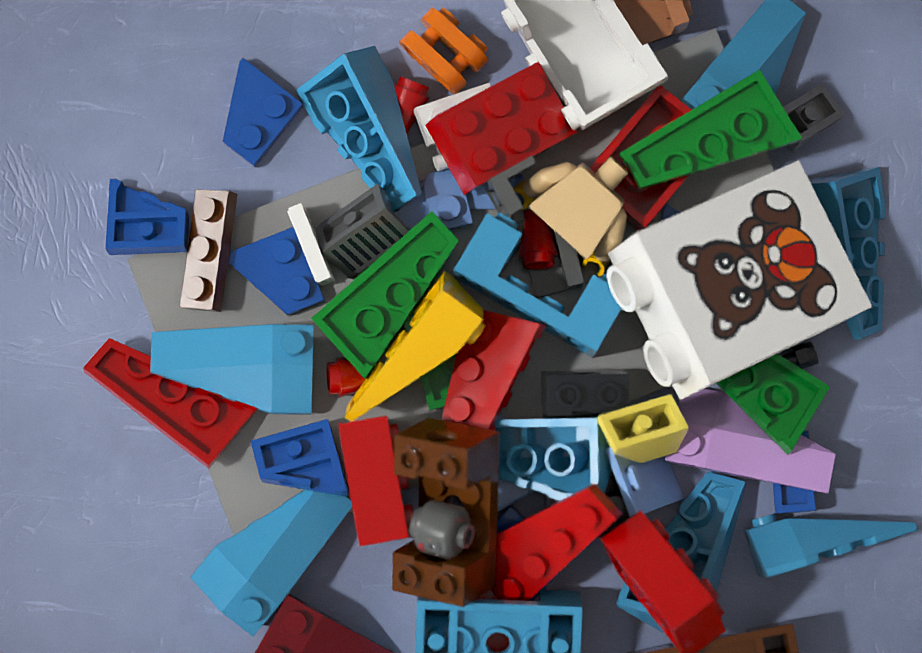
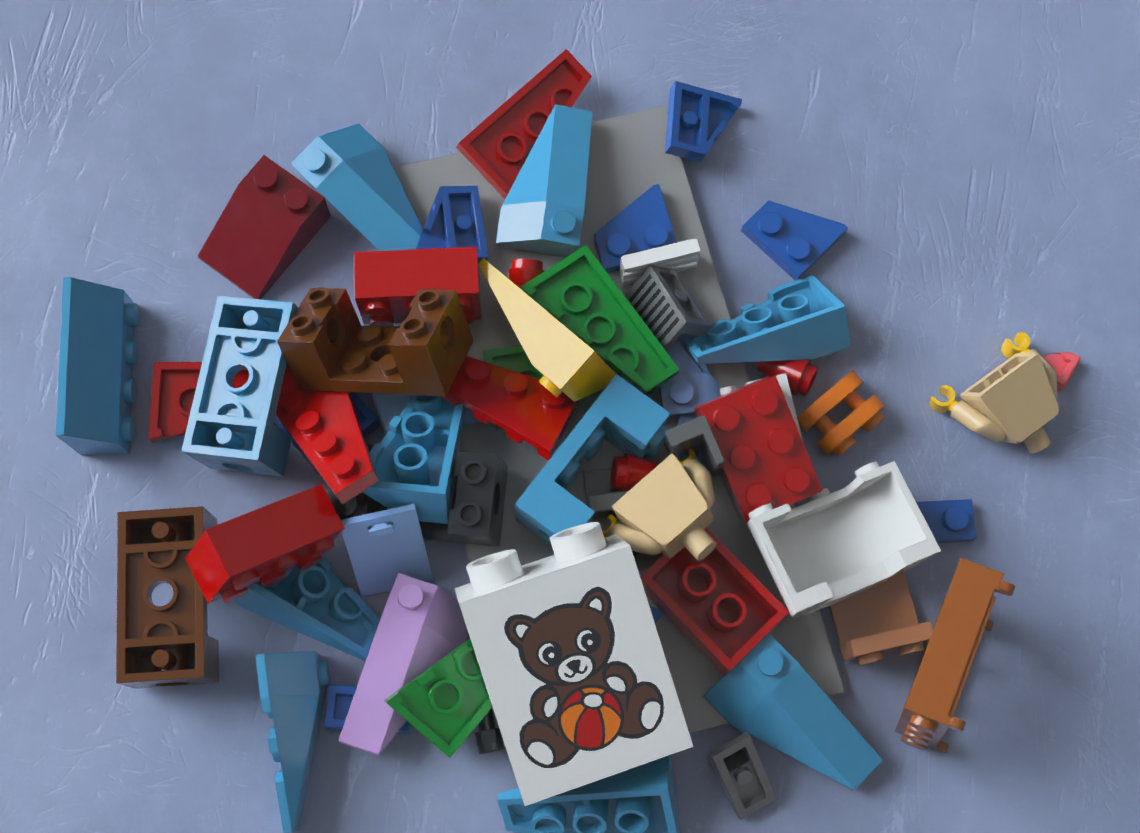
camera: 90 degrees right, 10 degrees down
(208, 250) = (664, 170): plate -> none
(441, 529) = (357, 331): dark grey head -> none
(645, 429) = (427, 543): light yellow slope -> none
(717, 132) = (733, 667): green wing -> none

